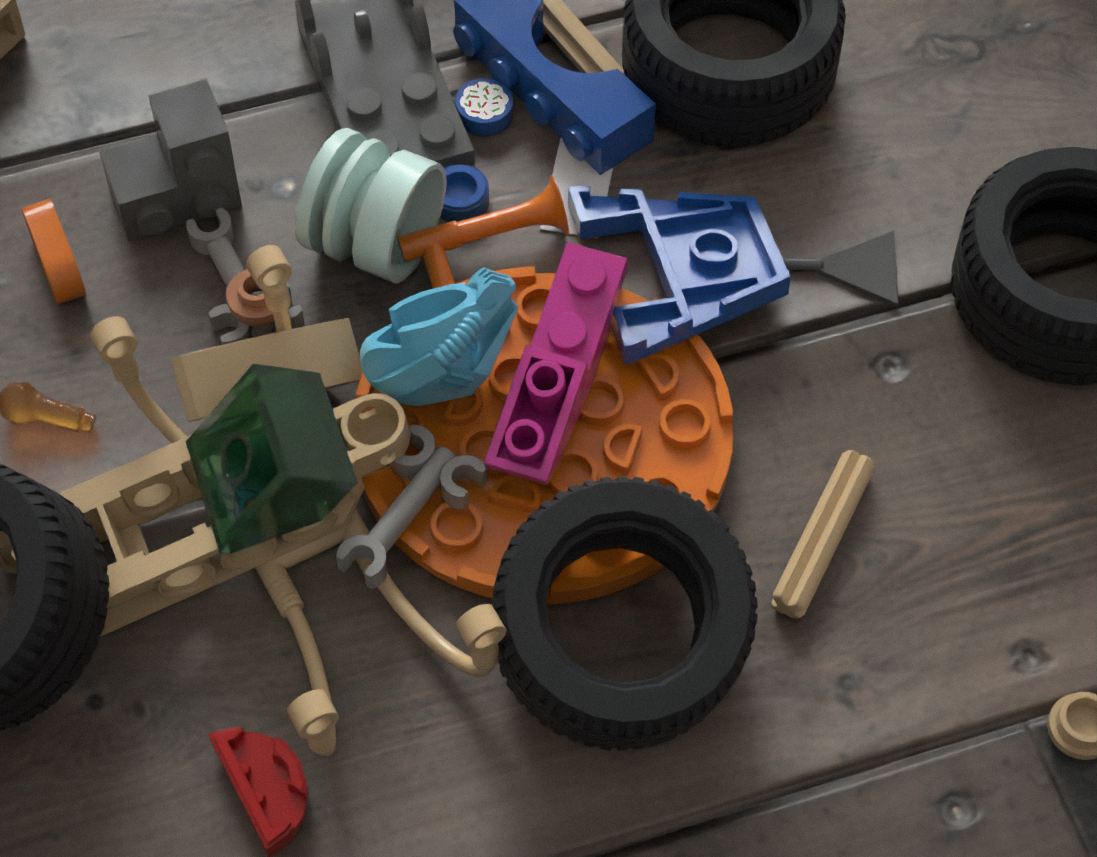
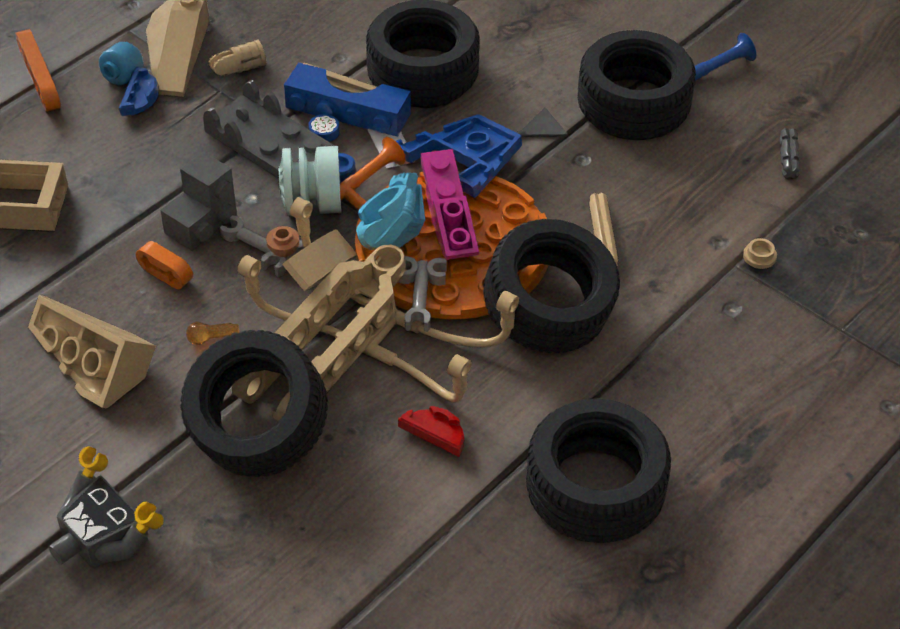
camera: 30 degrees left, 10 degrees down
(270, 457) = (356, 286): clear green slope -> none

